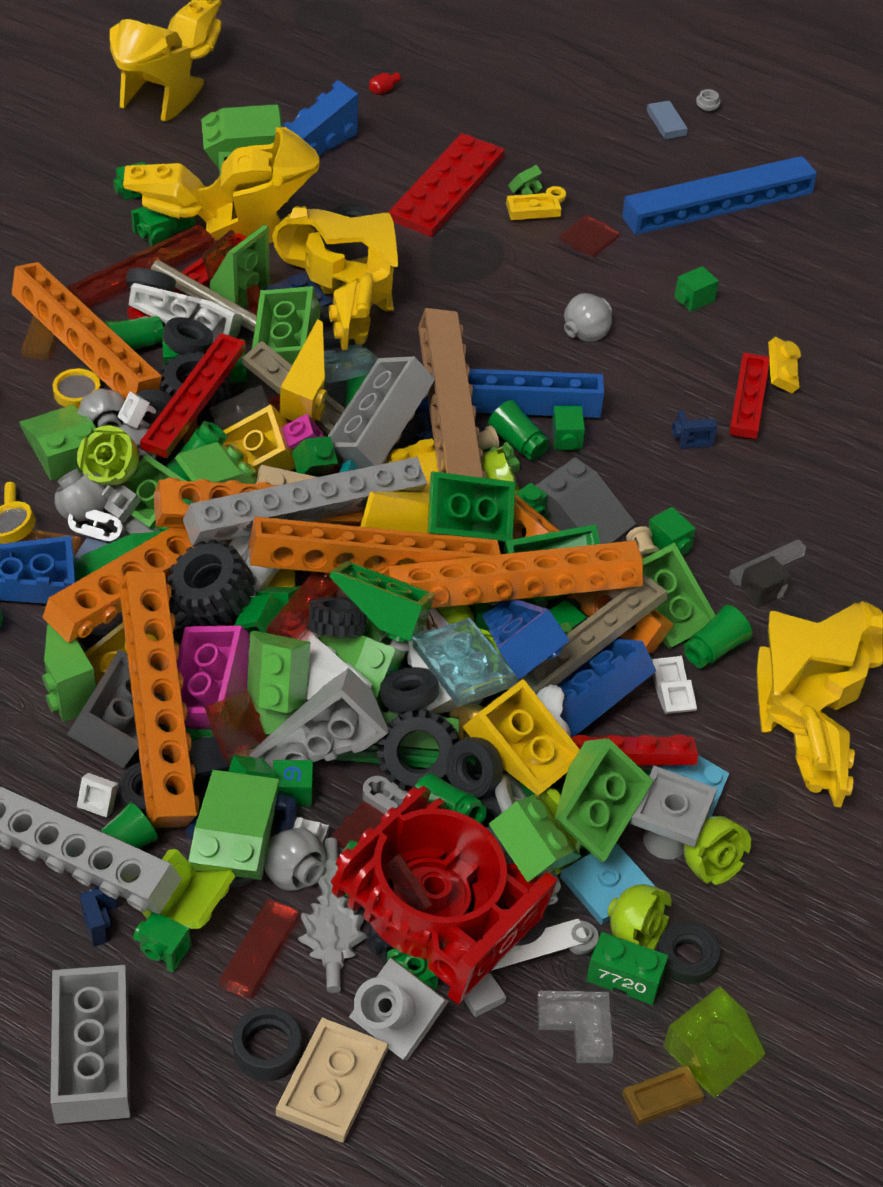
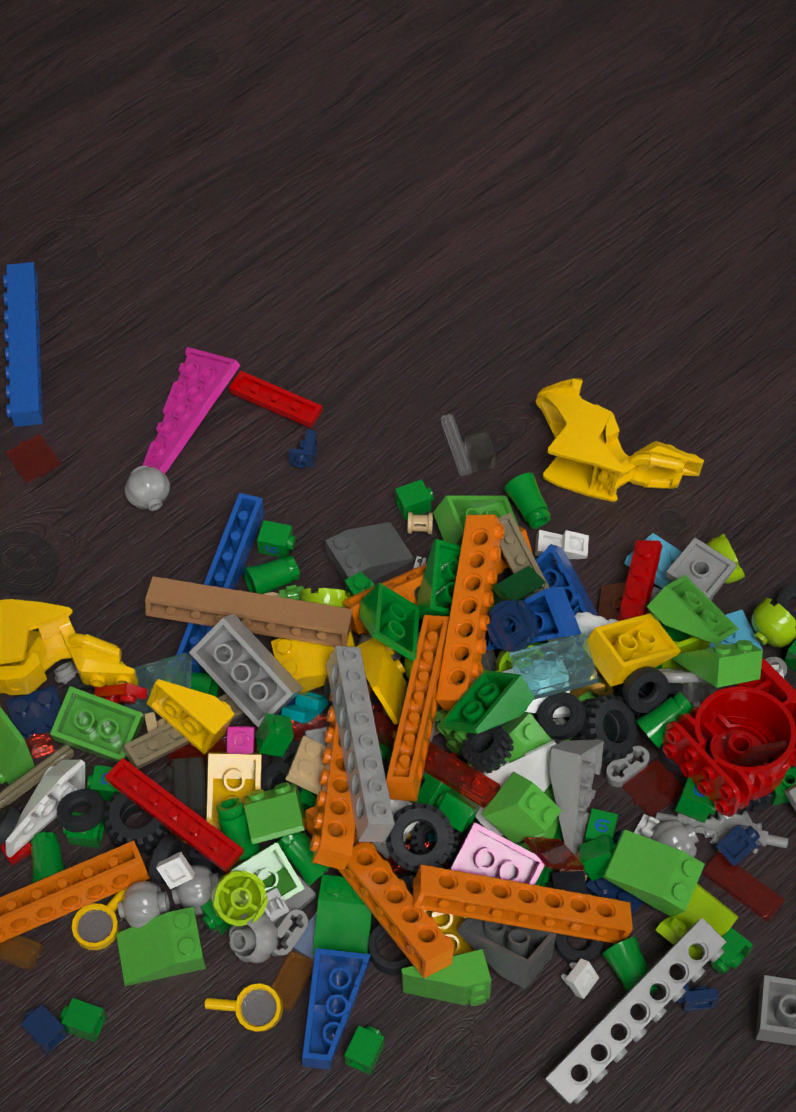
camera: 70 degrees left, 10 degrees up
(311, 924) = (739, 843): none -> dark blue bracket
(329, 340) = (122, 693): none -> red plate
(501, 609) = (524, 621): none -> dark blue plate
(572, 617) = (520, 585): none -> dark green tile
(696, 288) = (138, 397): green brick -> none
(702, 326) = (190, 399): none -> dark pink wing
(784, 364) = (252, 364): yellow hinge -> none

